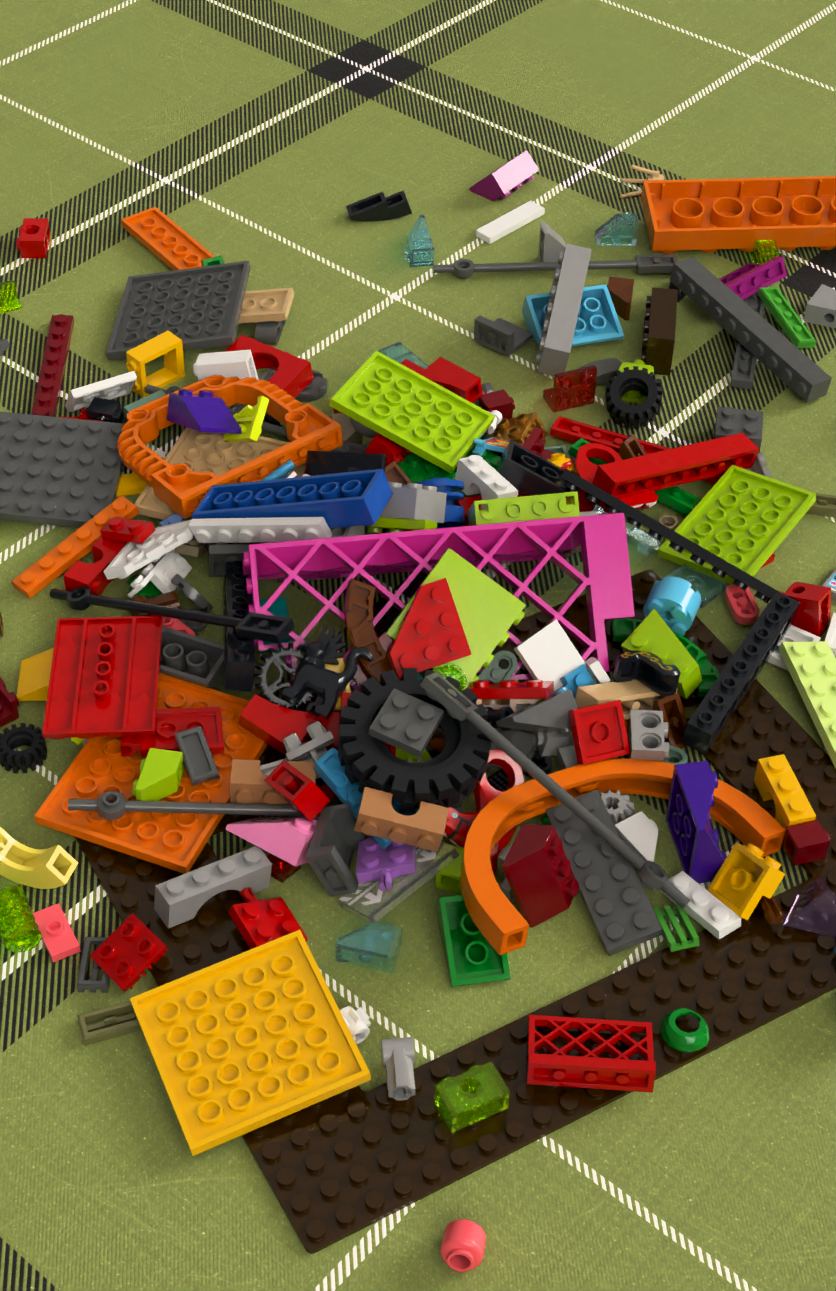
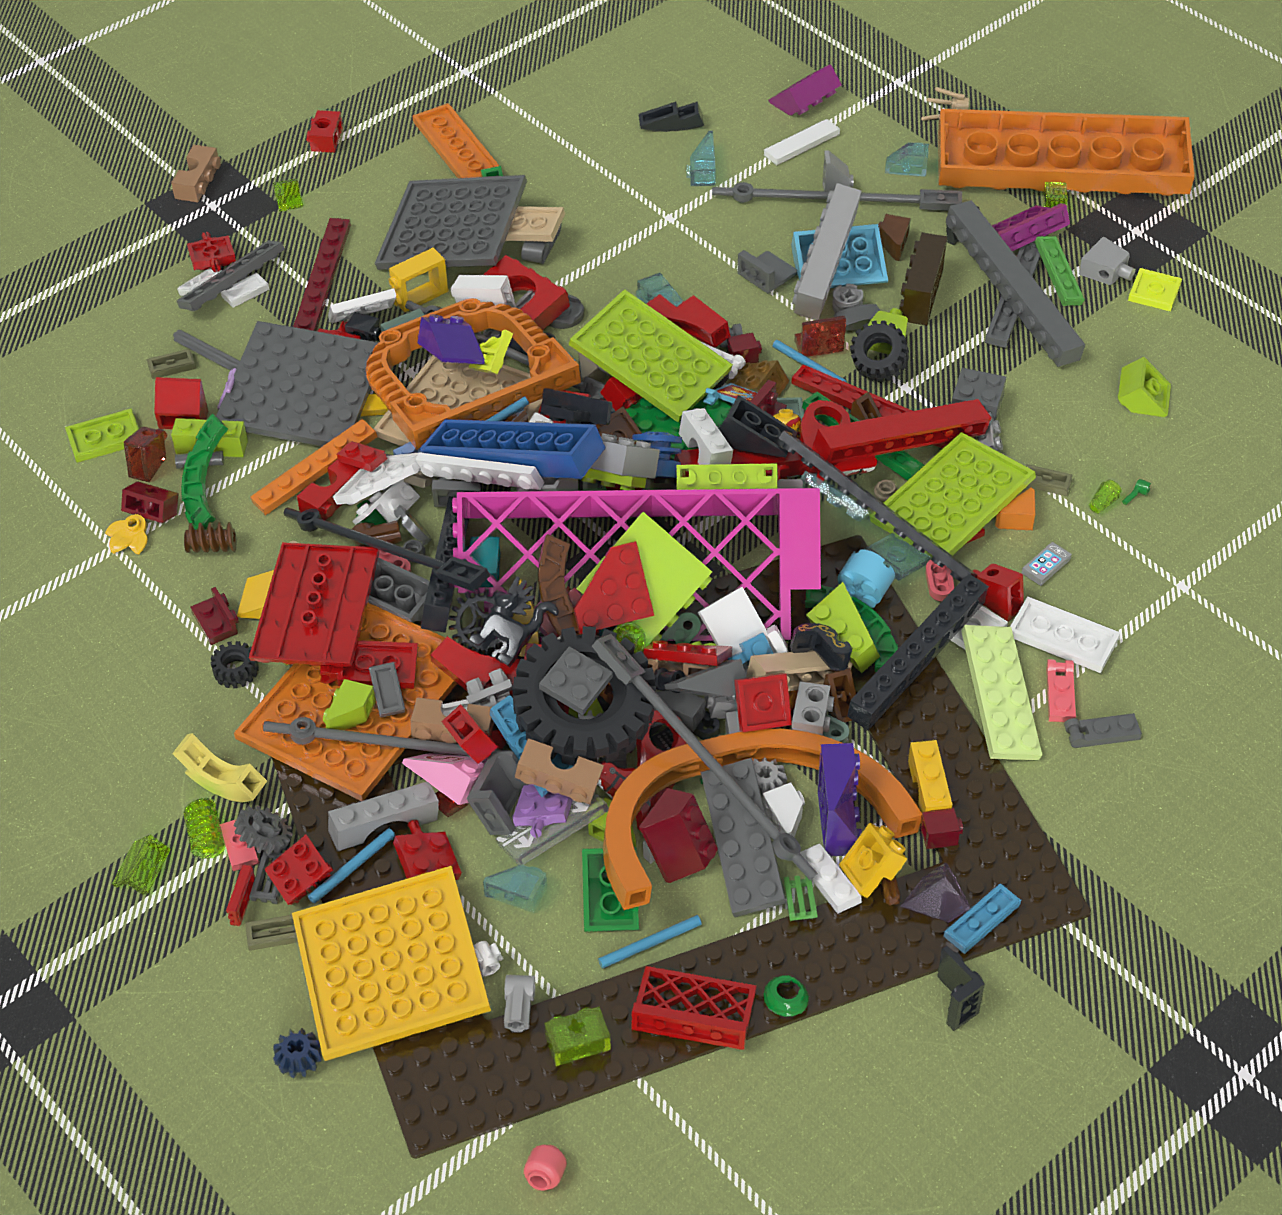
camera: 10 degrees right, 5 degrees up
(67, 986) = (240, 895): none -> red tile
(82, 914) = (263, 830): none -> dark grey gear
(160, 1150) = (297, 1053): none -> dark blue gear
(185, 943) = (351, 866): none -> dark azure piece
(524, 990) = (649, 941): none -> dark azure bar
(549, 410) = (803, 359): none -> dark azure bar
(587, 353) = (846, 297): none -> light grey wheel
(805, 536) = (1018, 513): none -> orange slope

